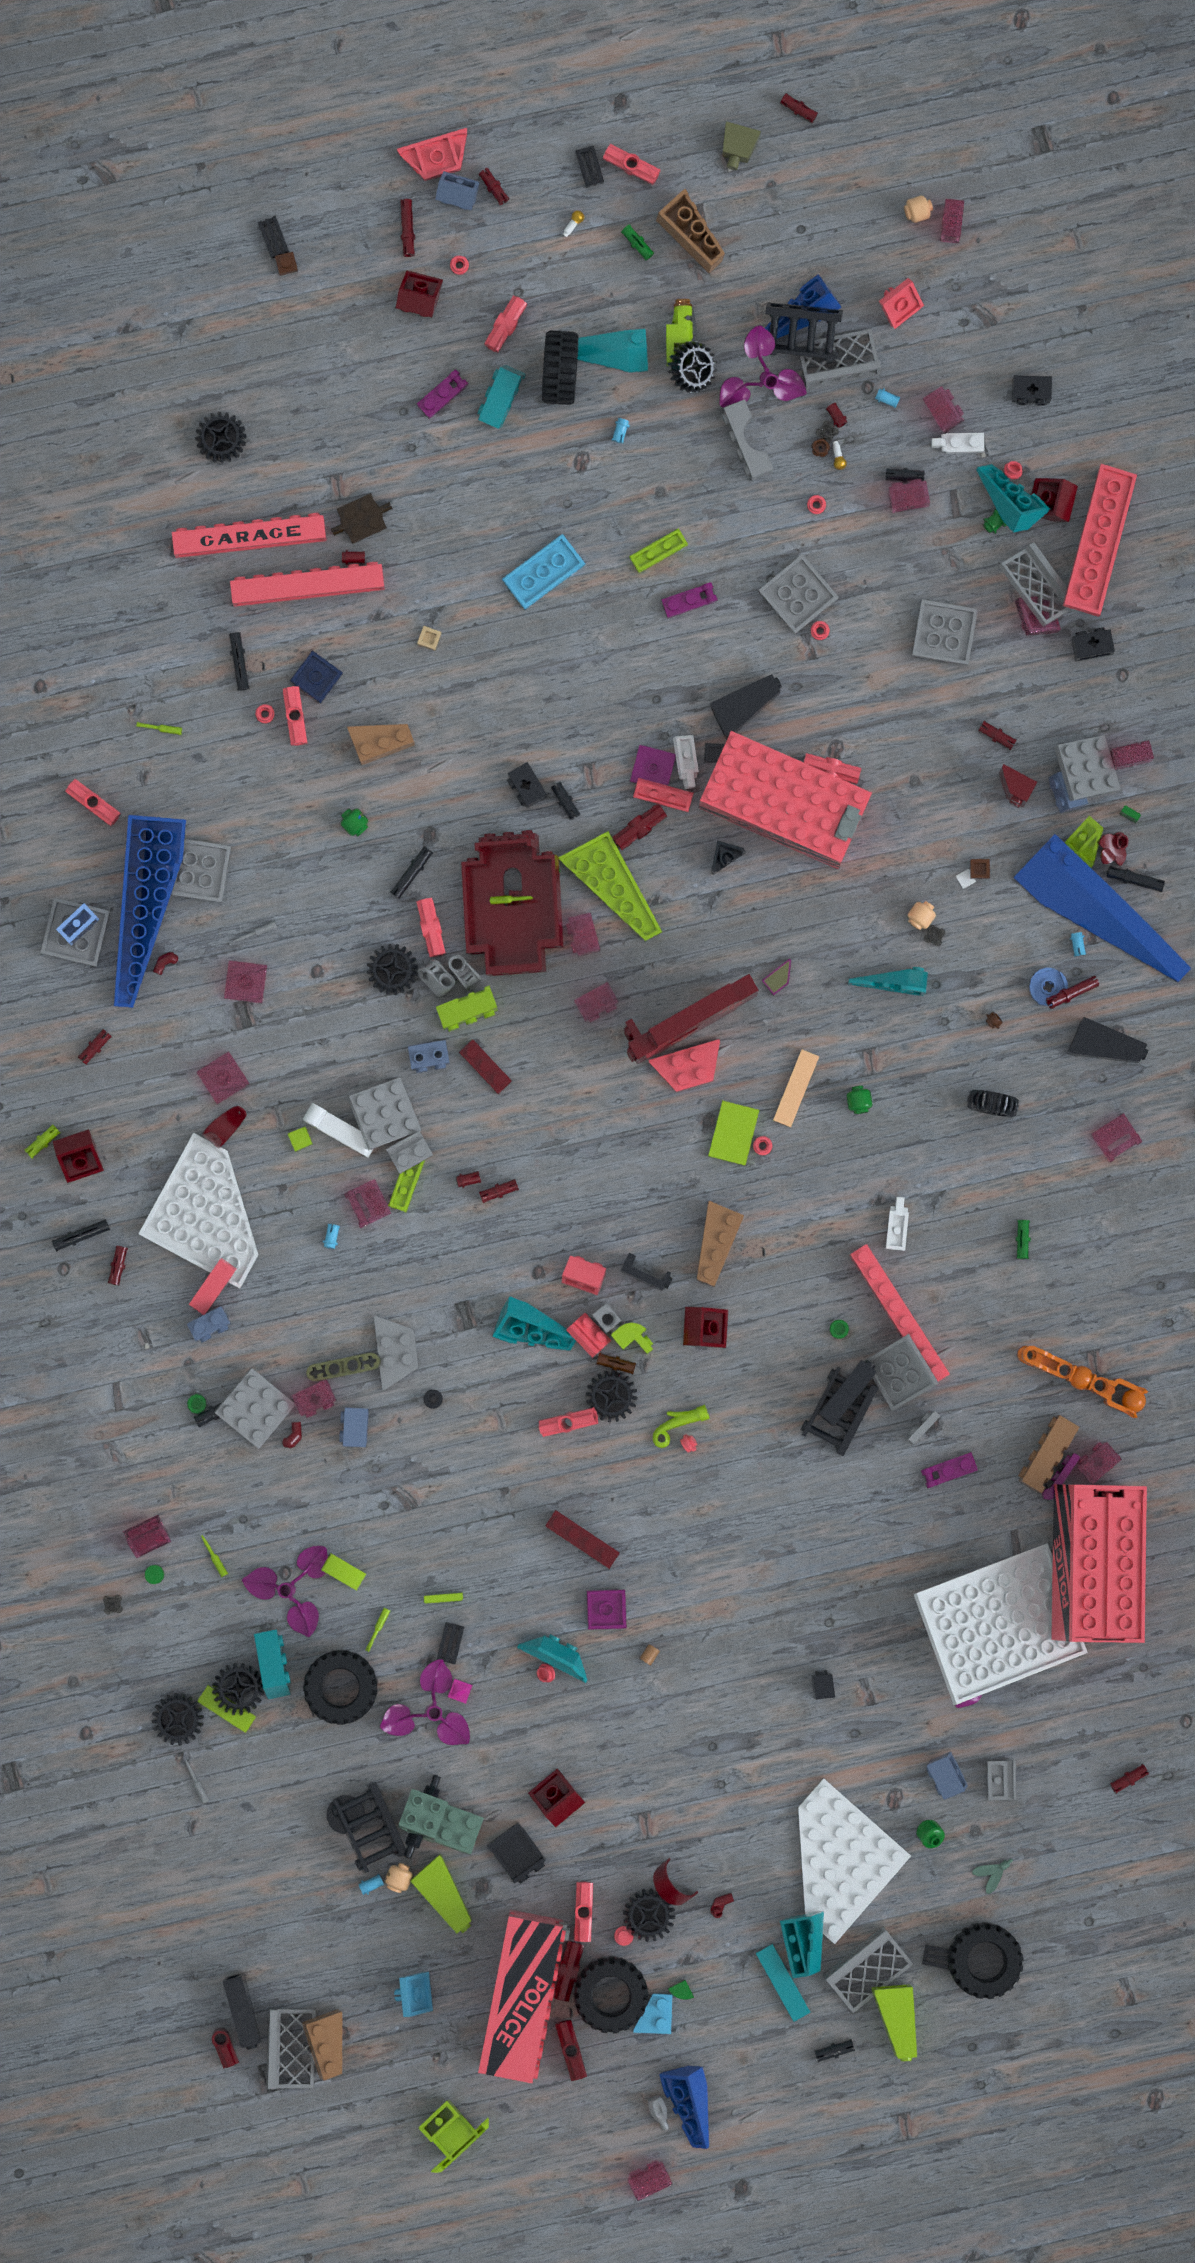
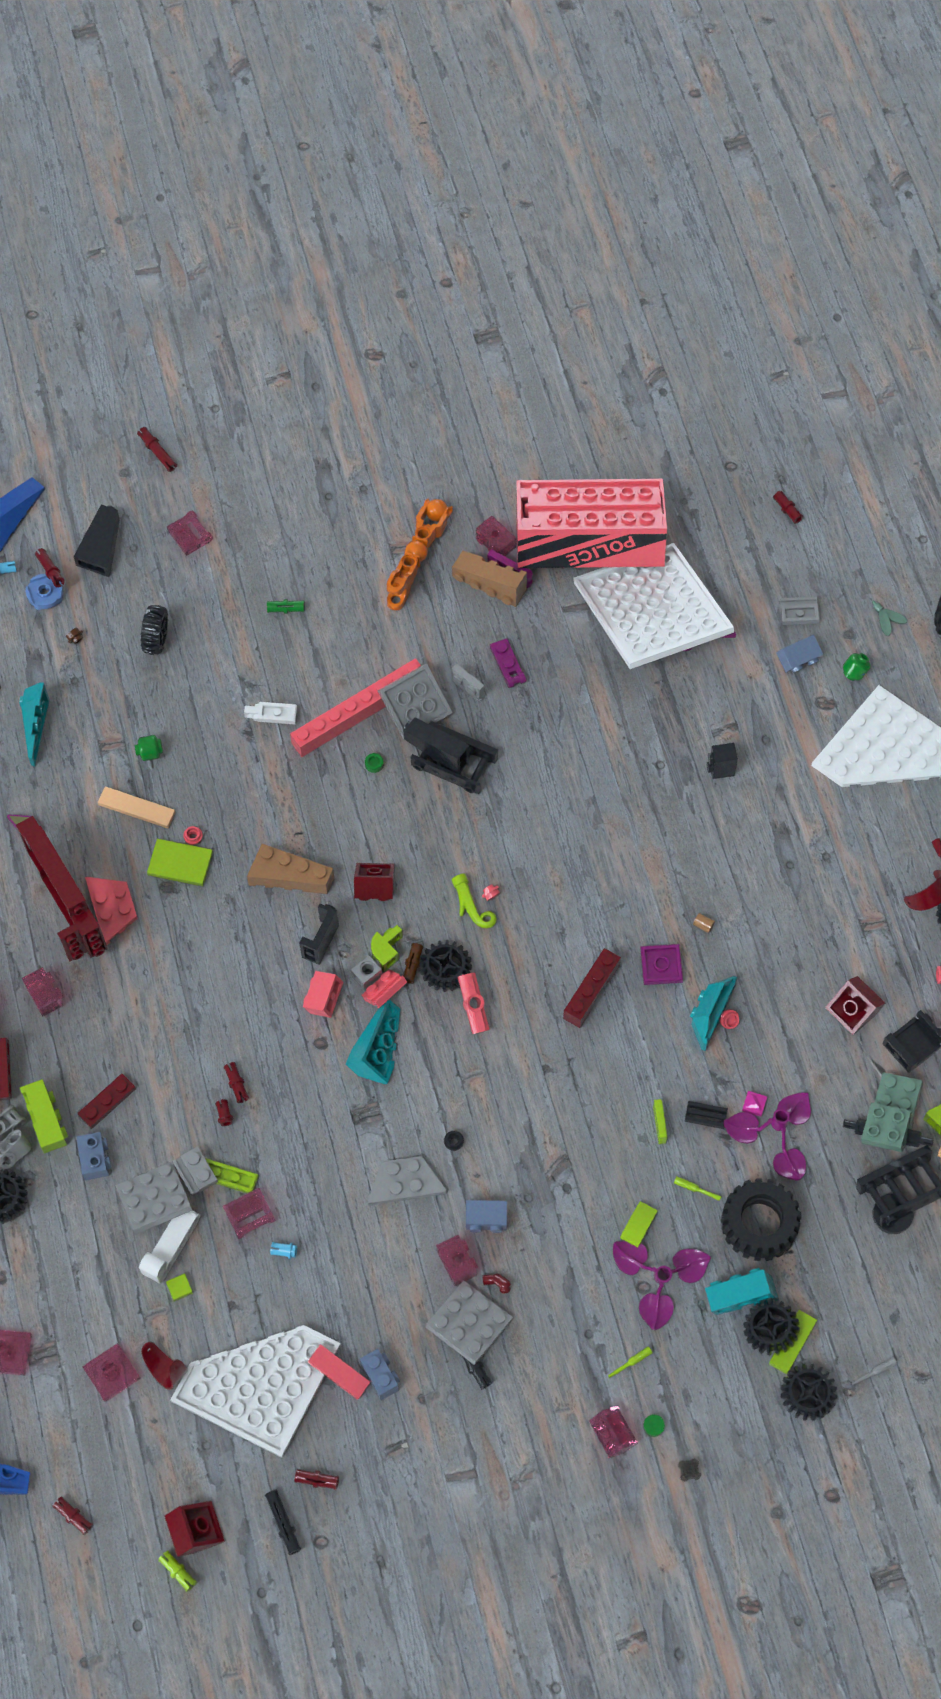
camera: 90 degrees left, 20 degrees down
(197, 1403) = (466, 1387): green tile -> none
(343, 1367) = (422, 1231): olive beam -> none

